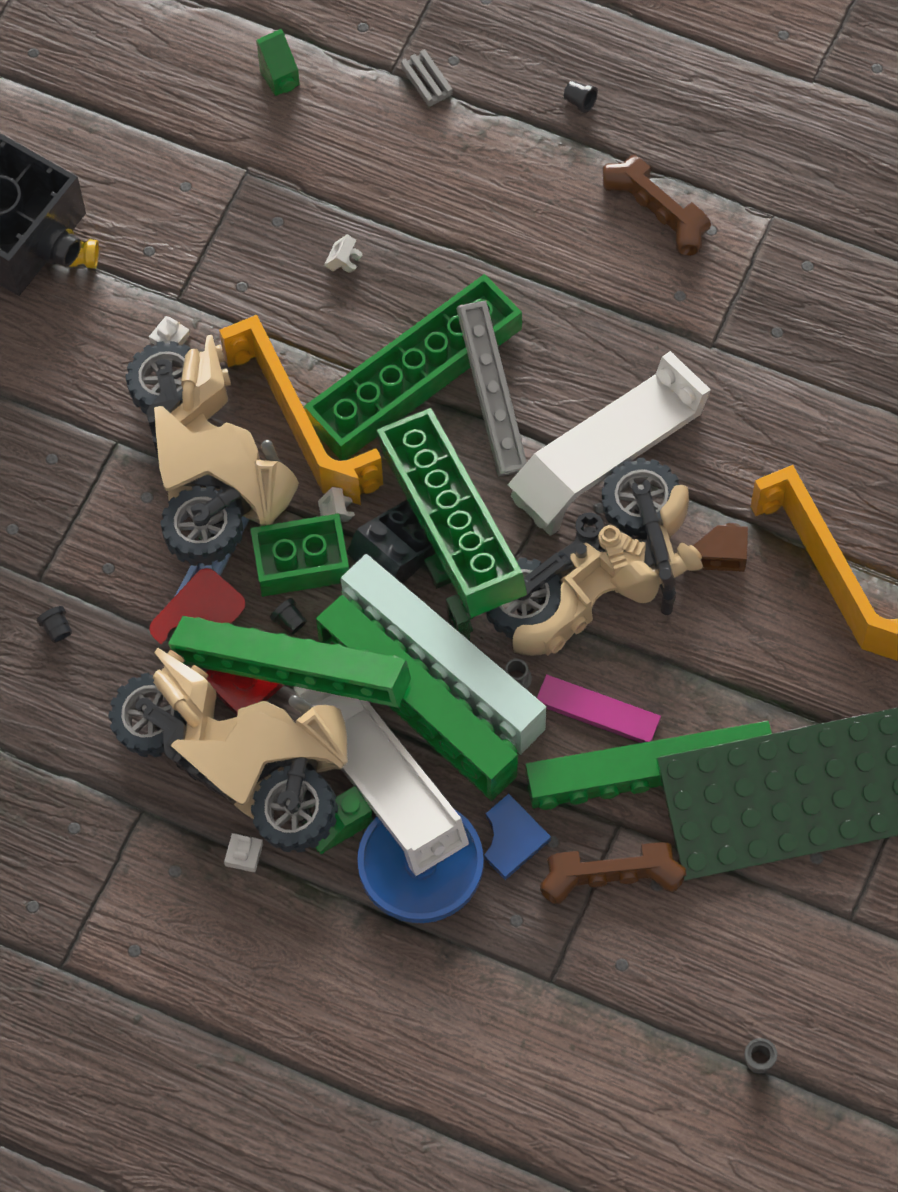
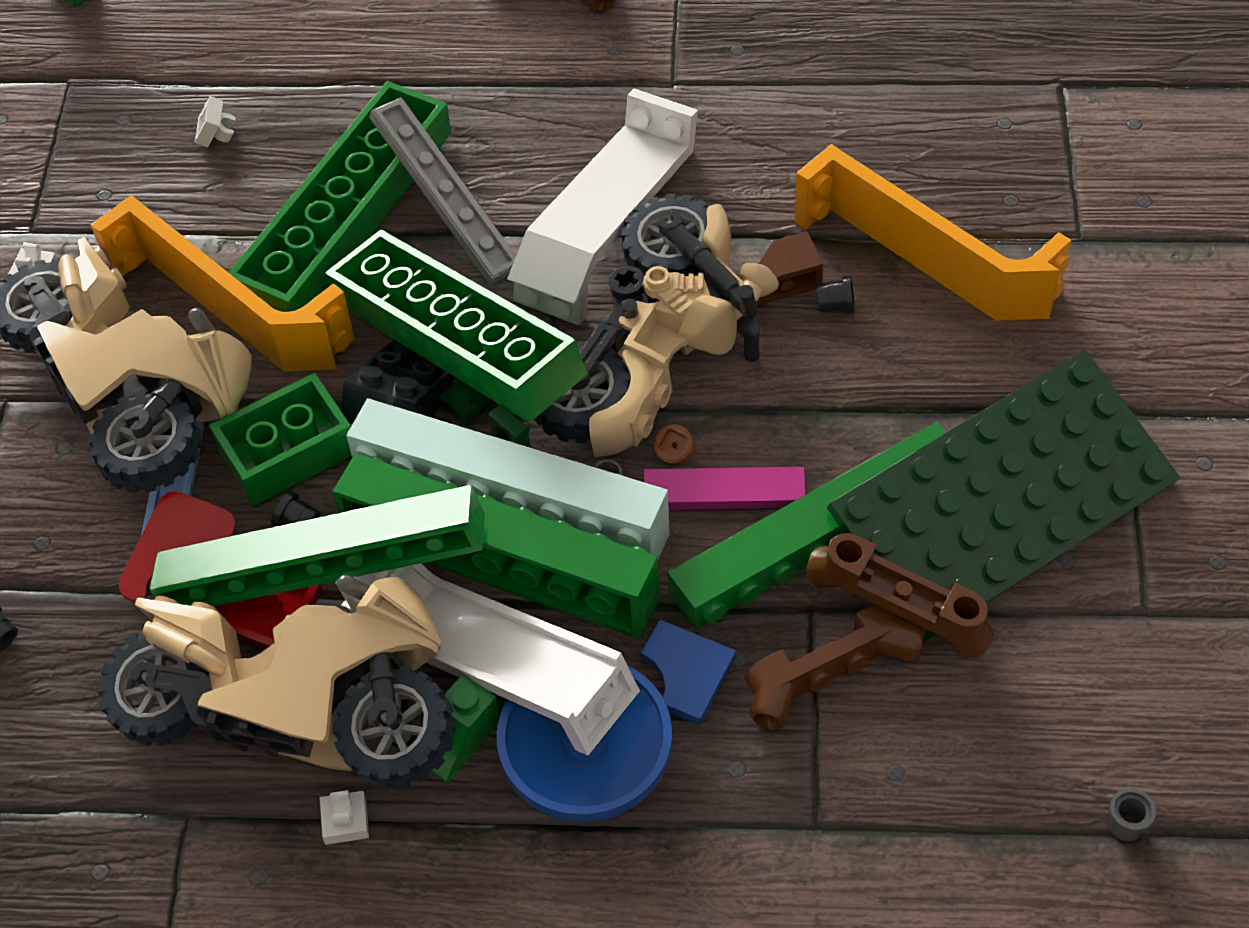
camera: 20 degrees left, 10 degrees down
(335, 502) = (303, 365): white tile -> none
(576, 663) = (674, 445): none -> dark orange tile
(700, 867) = (951, 614): none -> reddish brown plate
(749, 586) = (836, 296): none -> black piece

